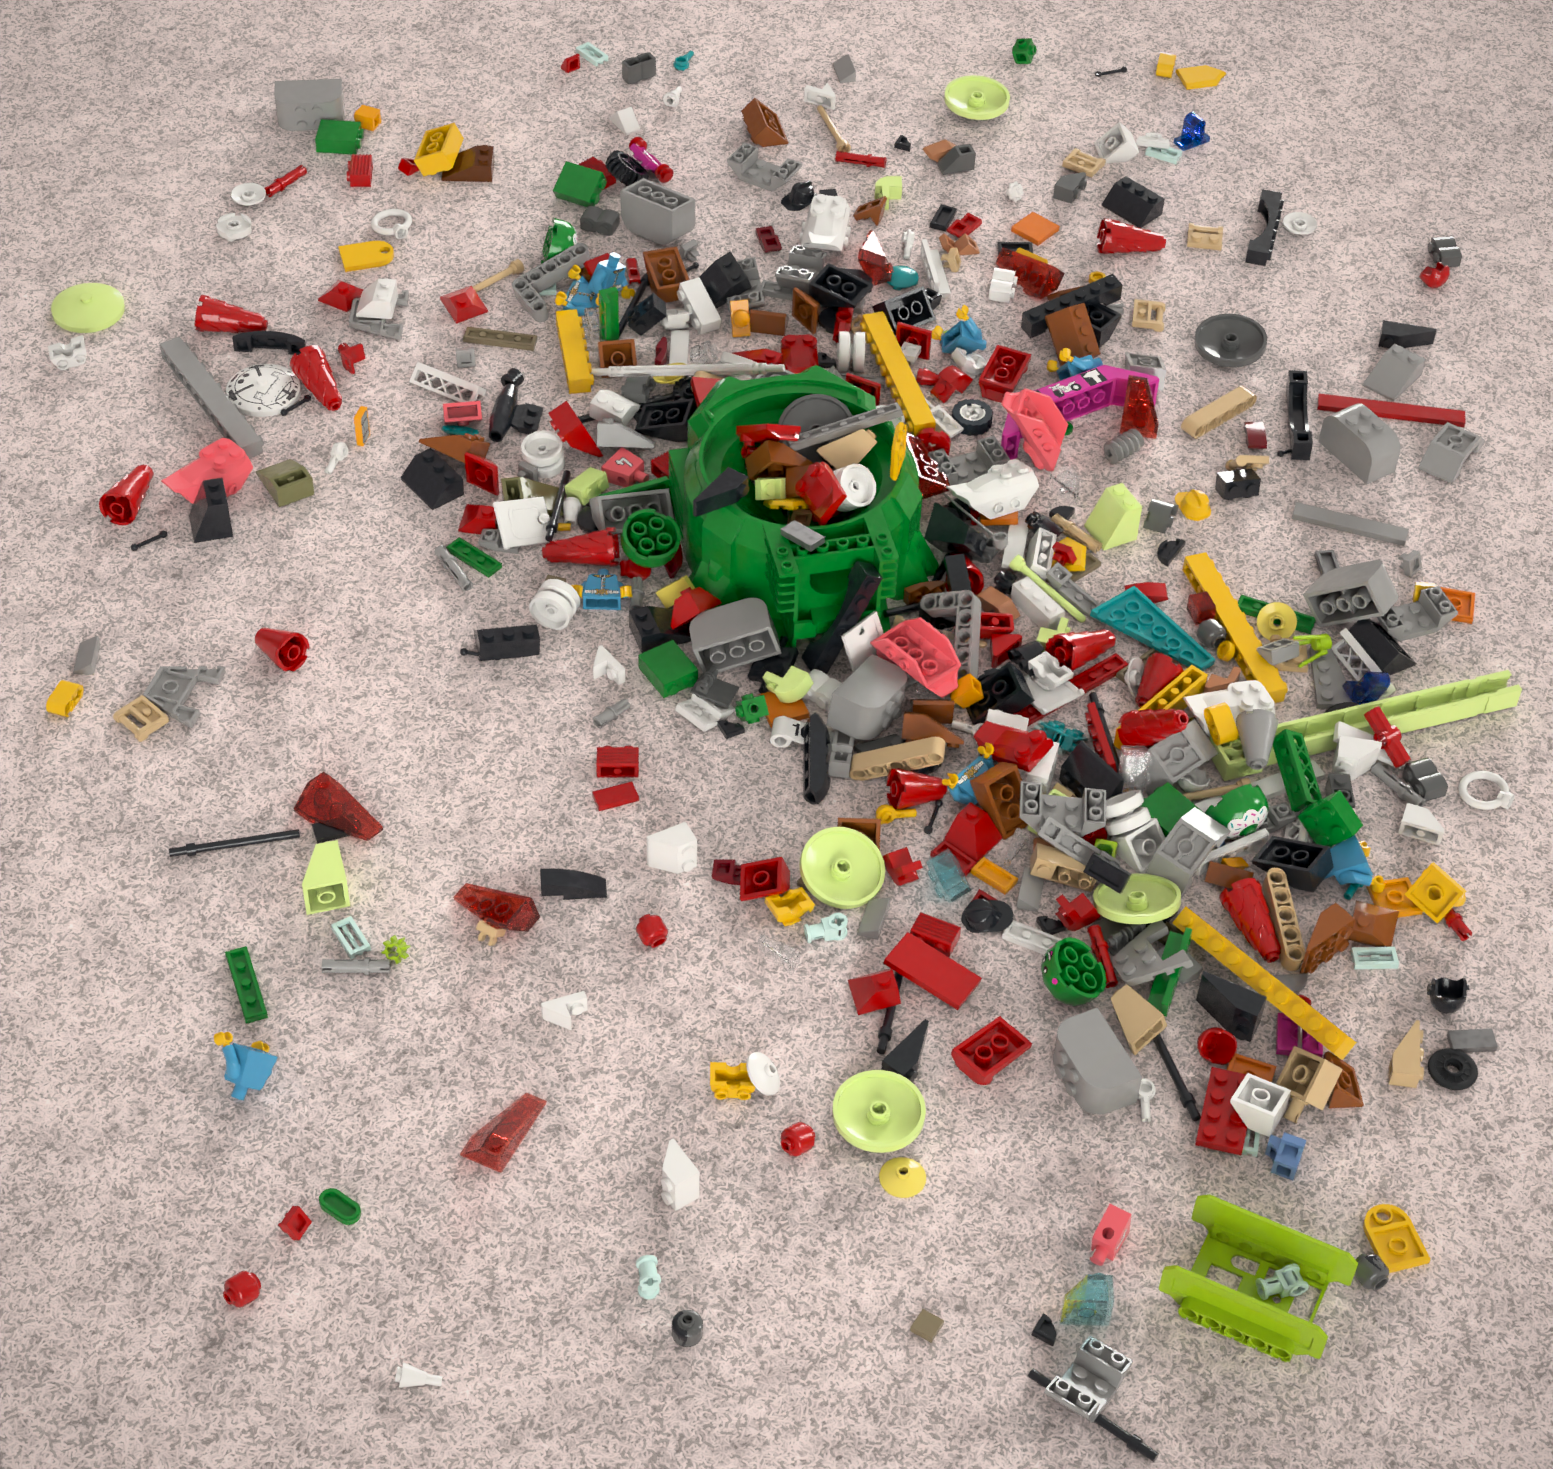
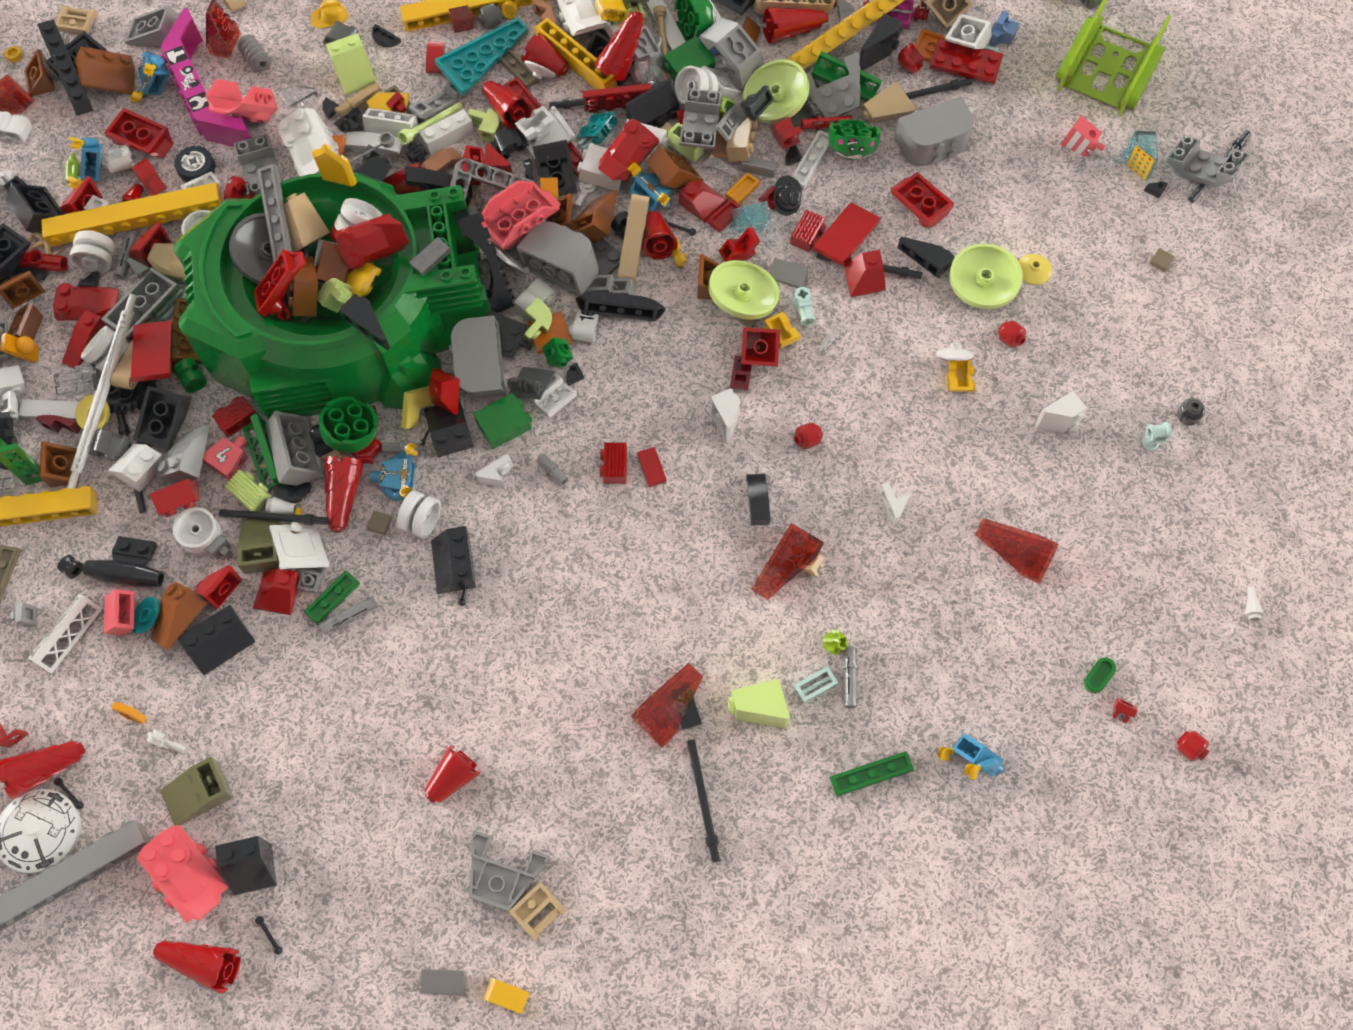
camera: 85 degrees left, 20 degrees up
(1284, 1282) = (1108, 44): light aqua connector -> none

